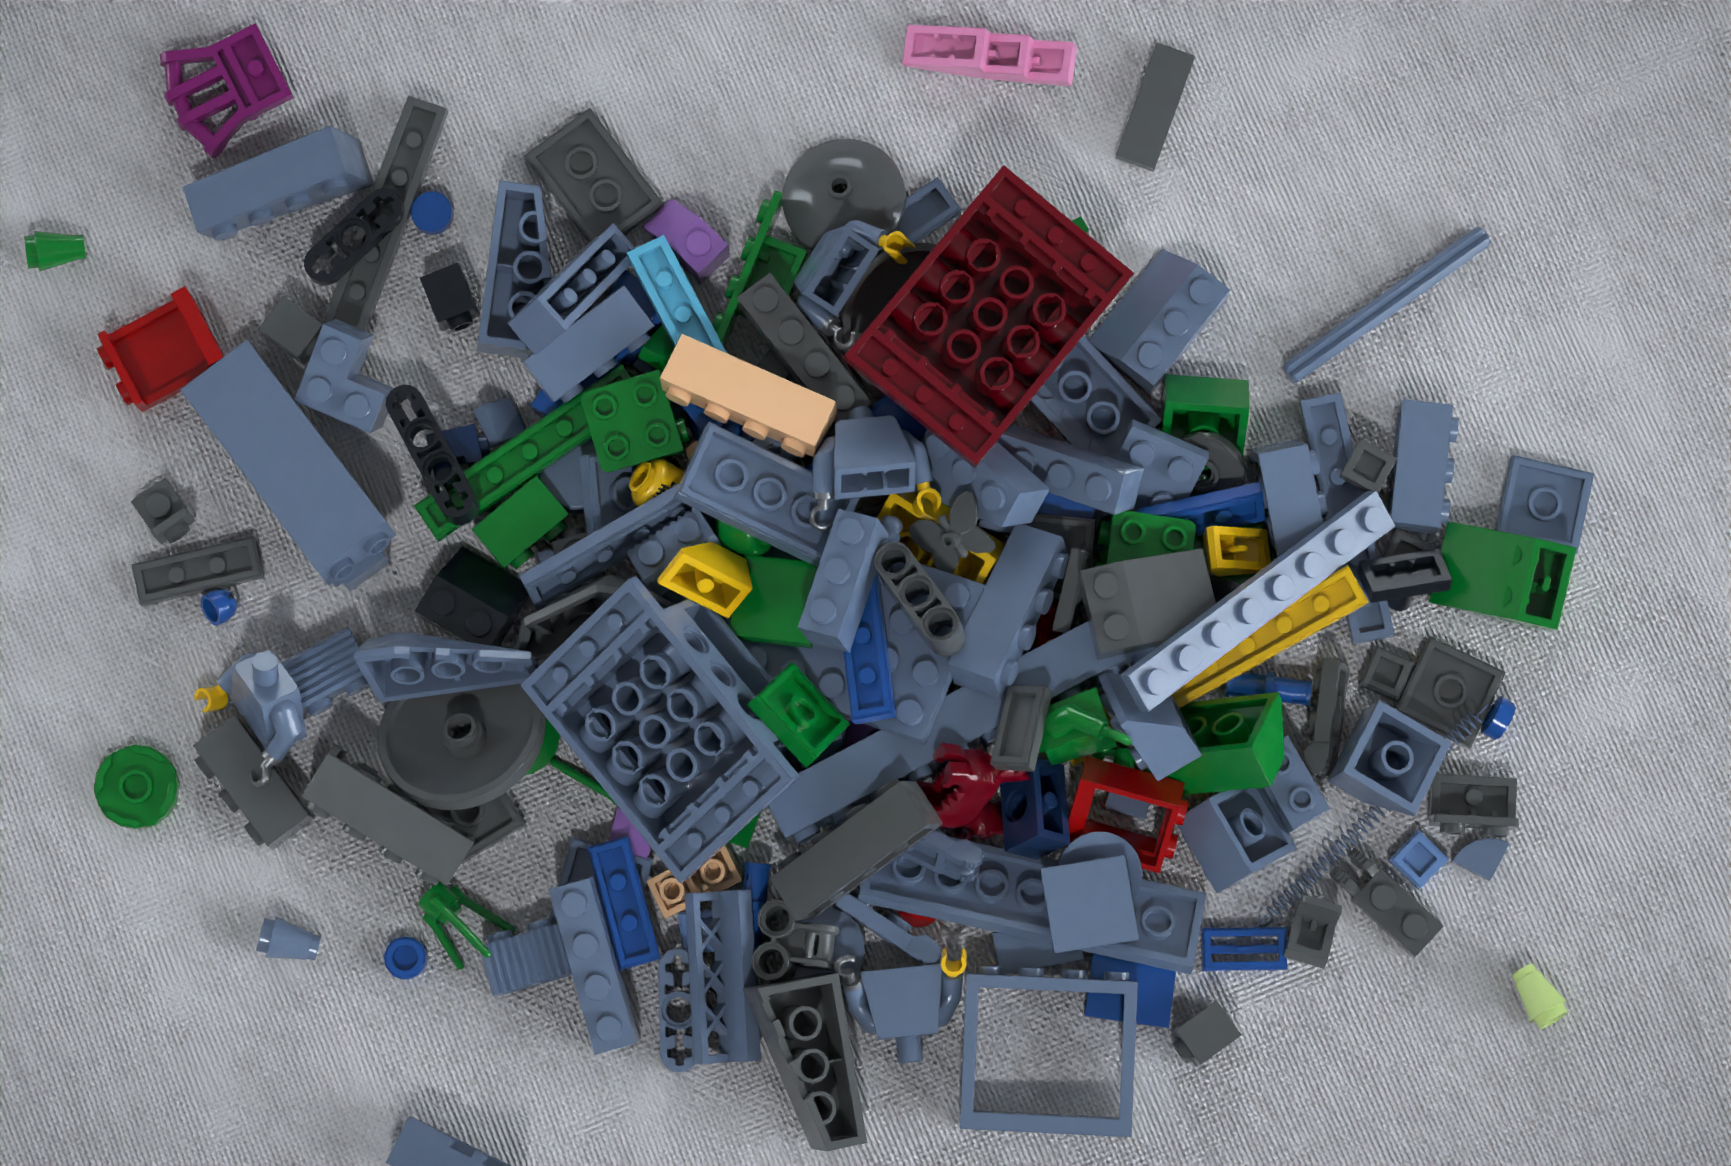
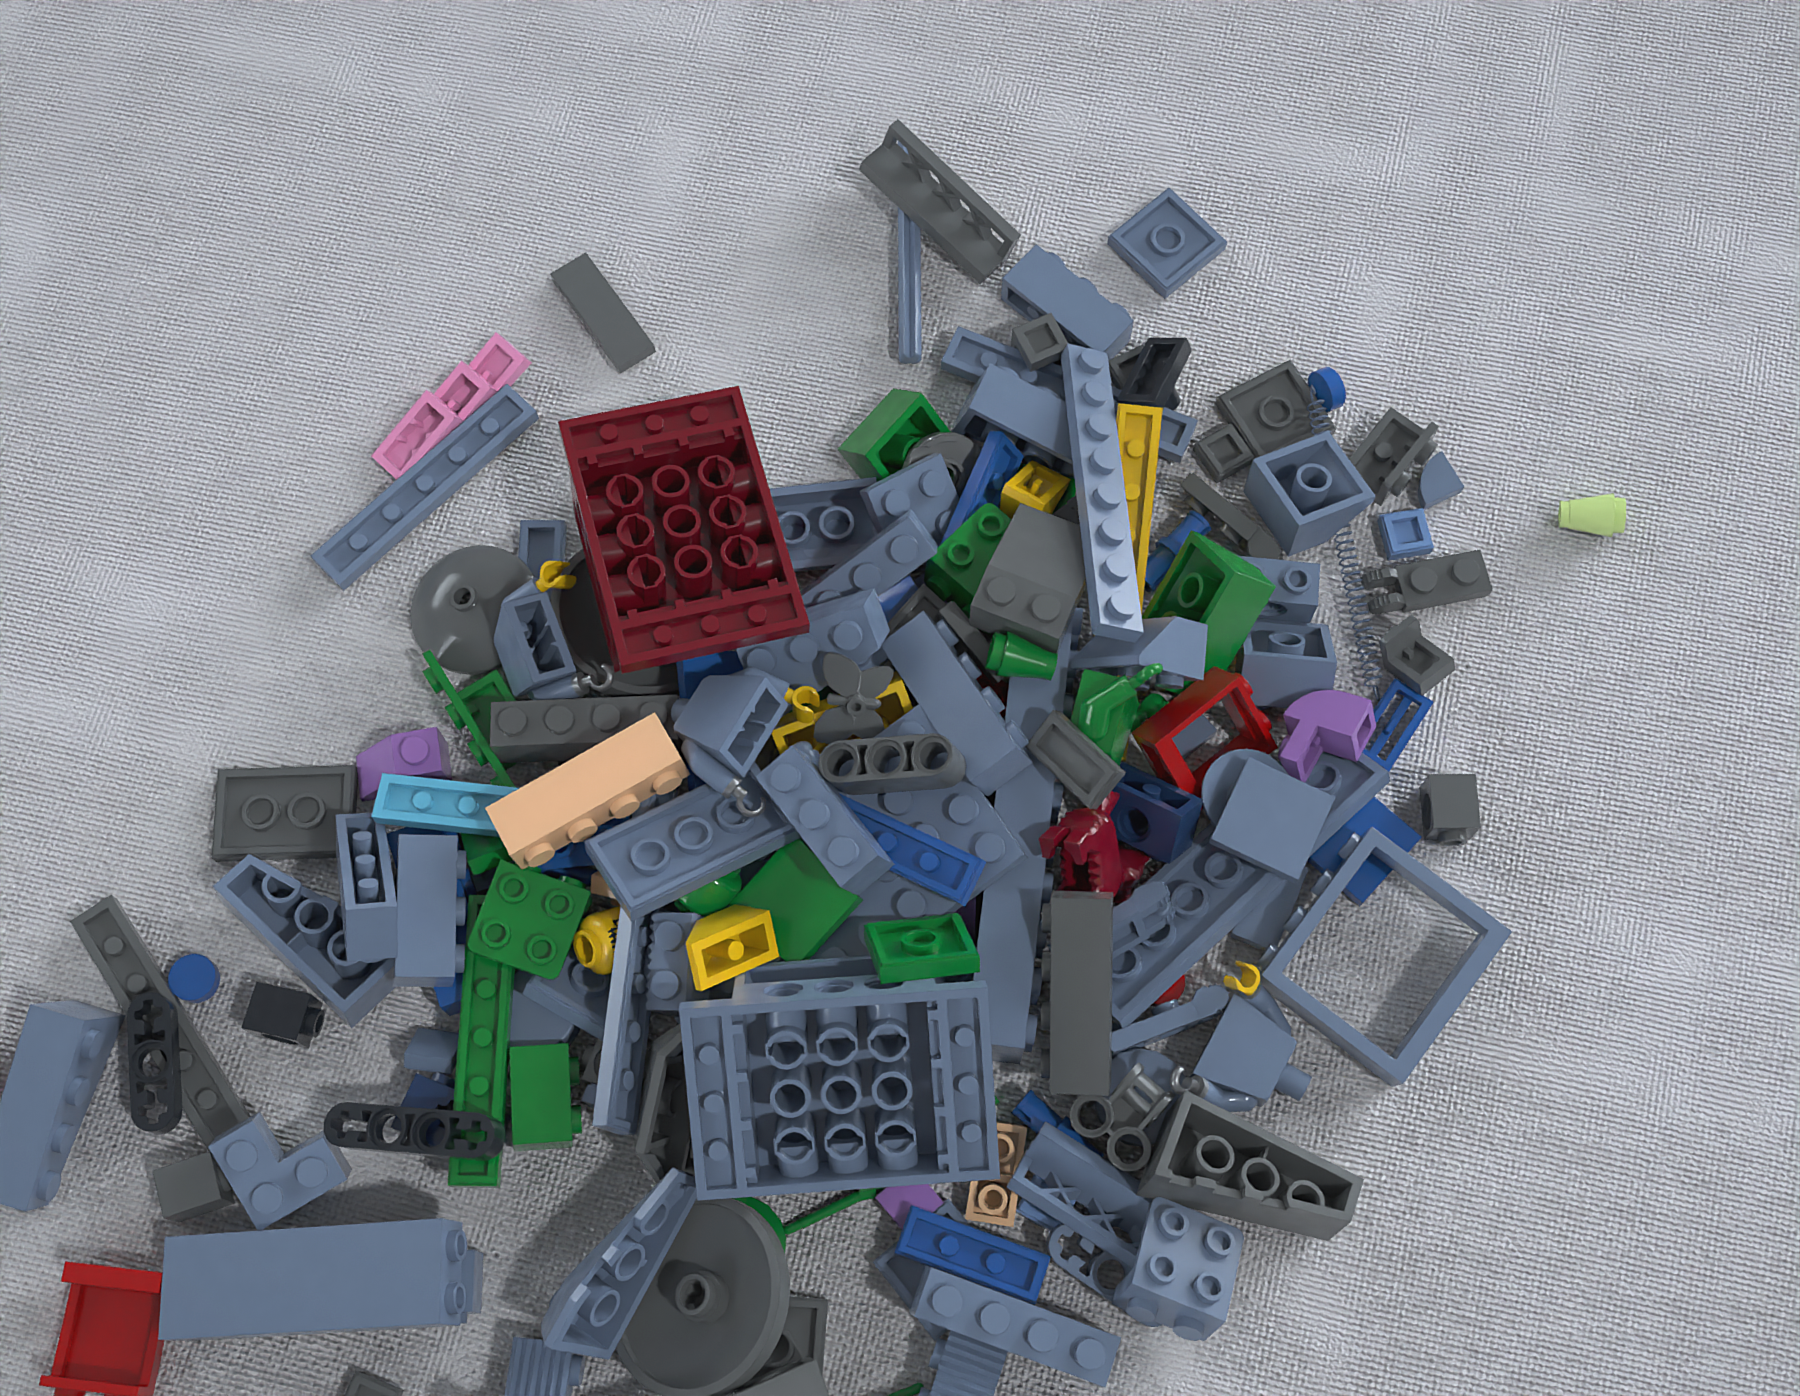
camera: 55 degrees left, 10 degrees down
(473, 599) = (578, 1196): black slope -> none
(713, 1055) = (1182, 1271): none -> sand blue bracket
(913, 85) = (424, 487): none -> sand blue plate
(1073, 632) = (1017, 657): none -> green cone
(1159, 319) = (790, 420): sand blue slope -> none
(1195, 890) = (1327, 723): none -> medium lavender brick
(1434, 302) = (938, 206): none -> dark grey fence
(1505, 575) = (1213, 298): green slope -> none

